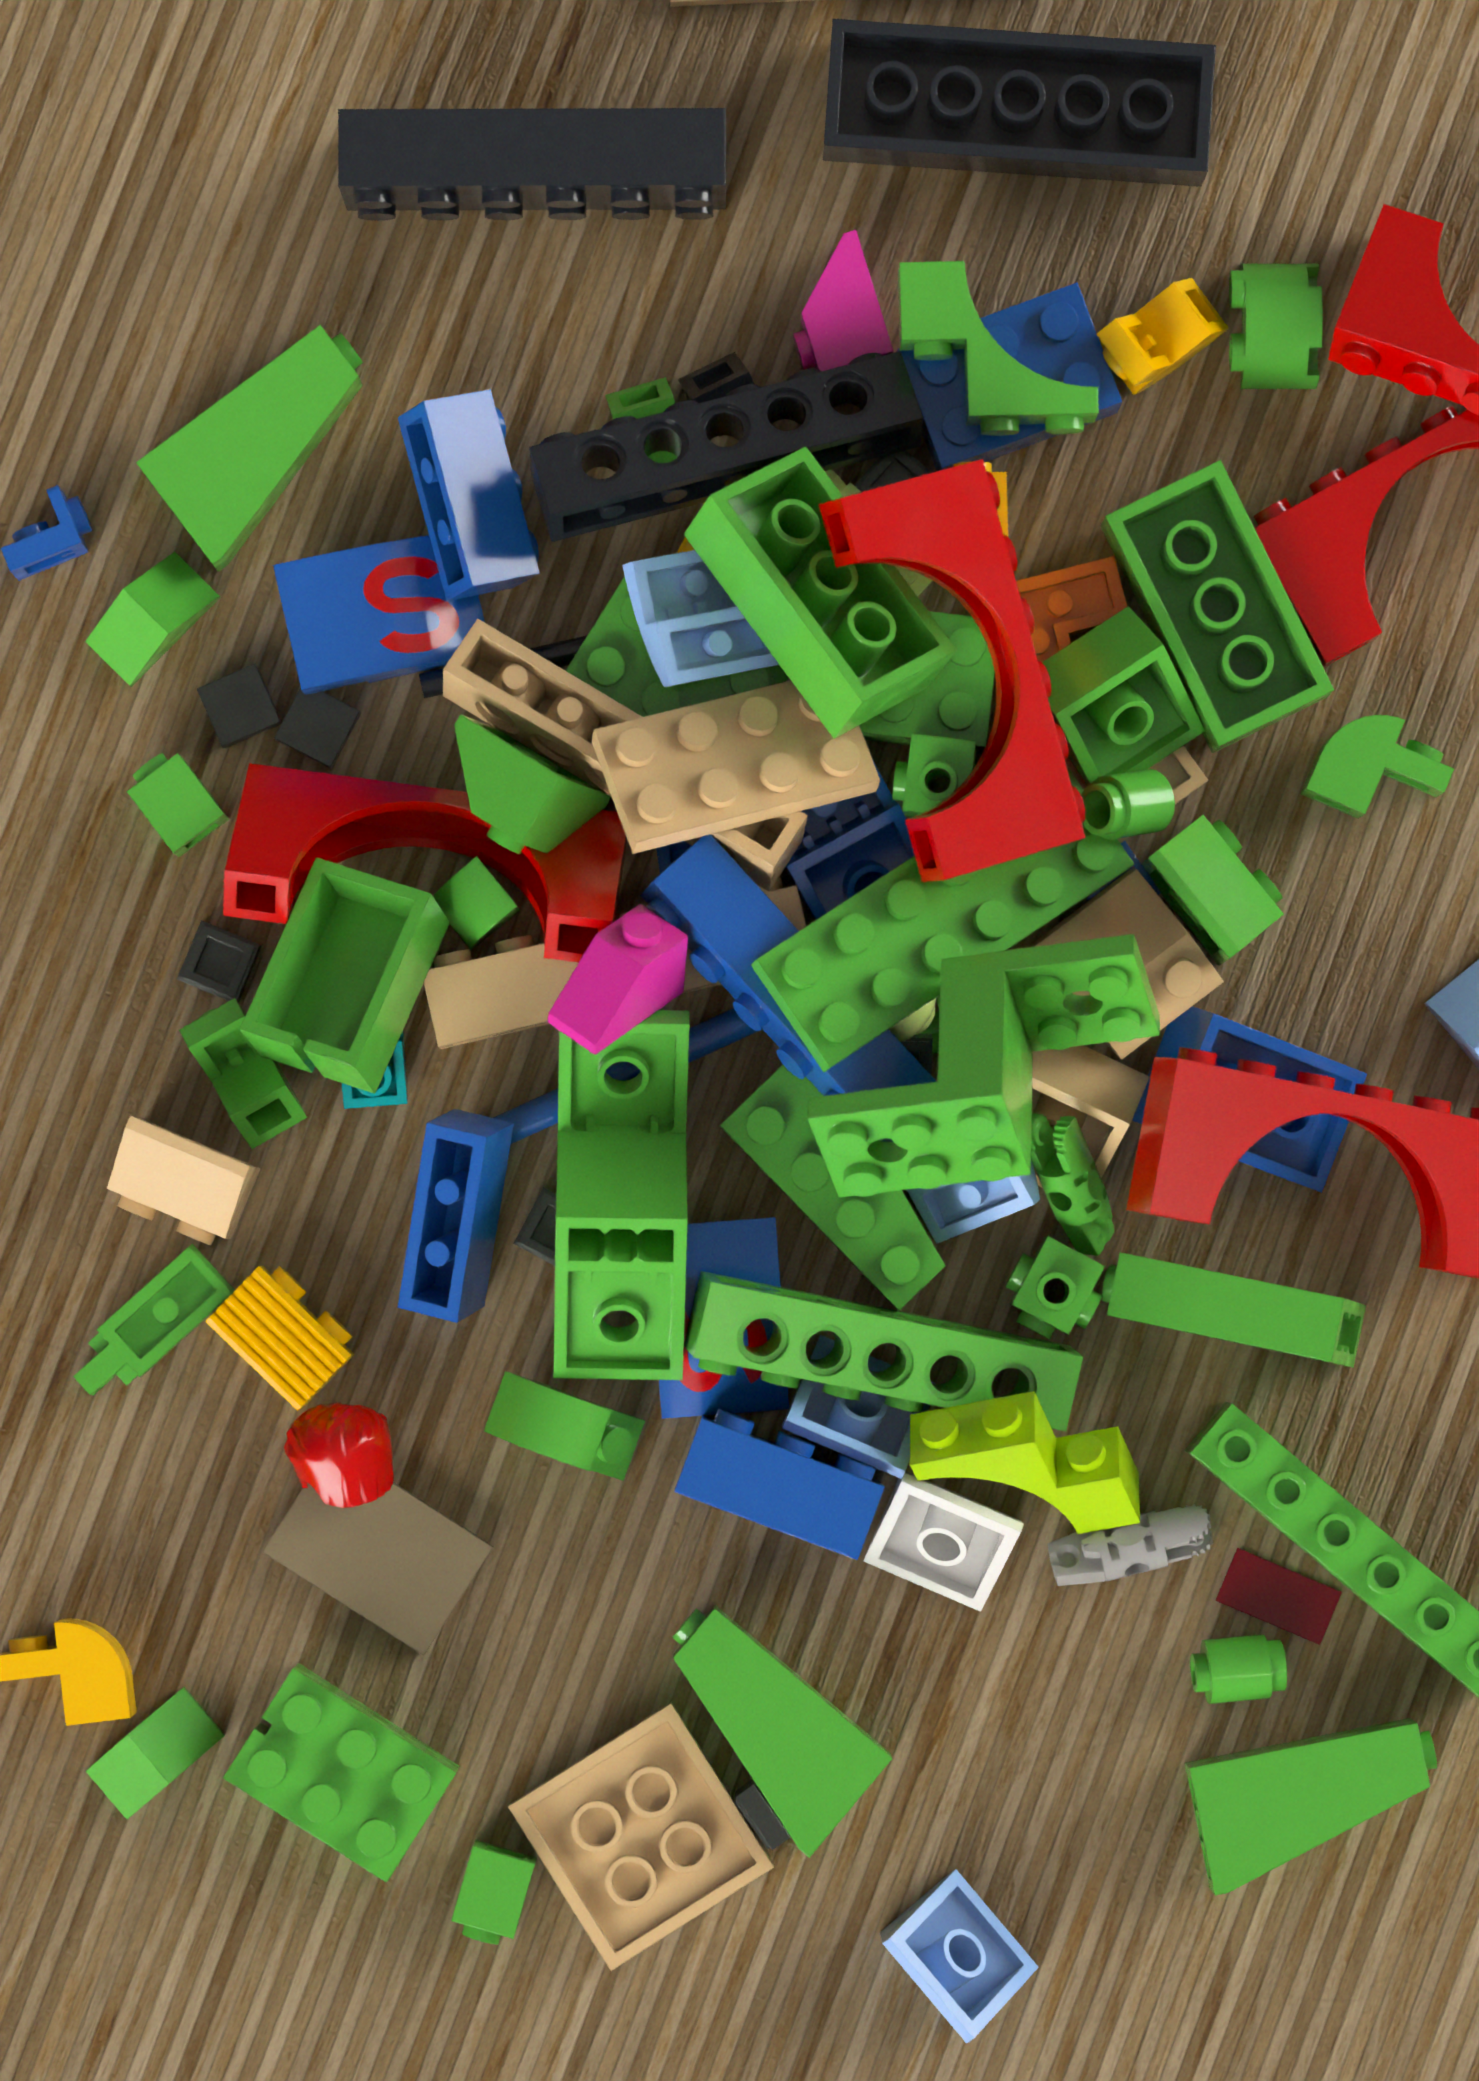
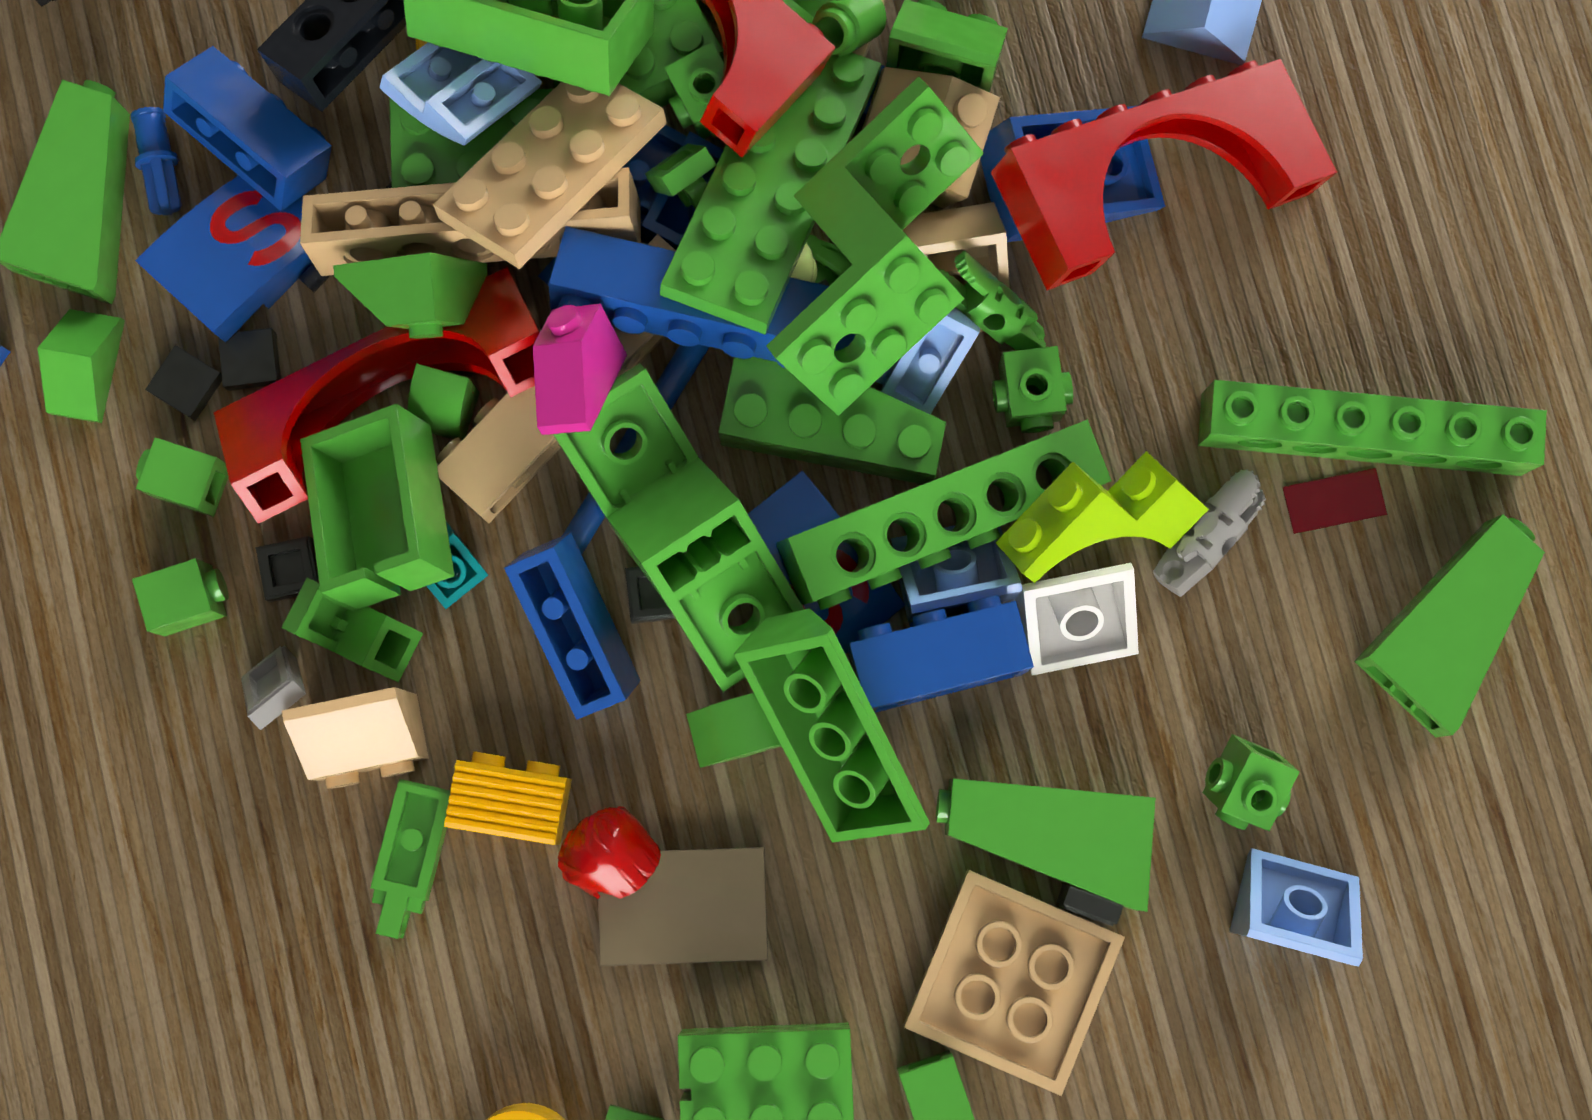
camera: 30 degrees left, 5 degrees down
(100, 922) = (181, 597): none -> bright green brick
(131, 1075) = (272, 686): none -> light grey tile
(357, 460) = (156, 160): none -> blue axle
(625, 1483) = (828, 728): none -> bright green slope
(859, 848) = (682, 174): none -> bright green tile
(992, 1807) = (1249, 784): none -> bright green brick
(1234, 1309) = (1166, 318): bright green slope -> none
(1239, 1668) = (1348, 566): bright green brick -> none

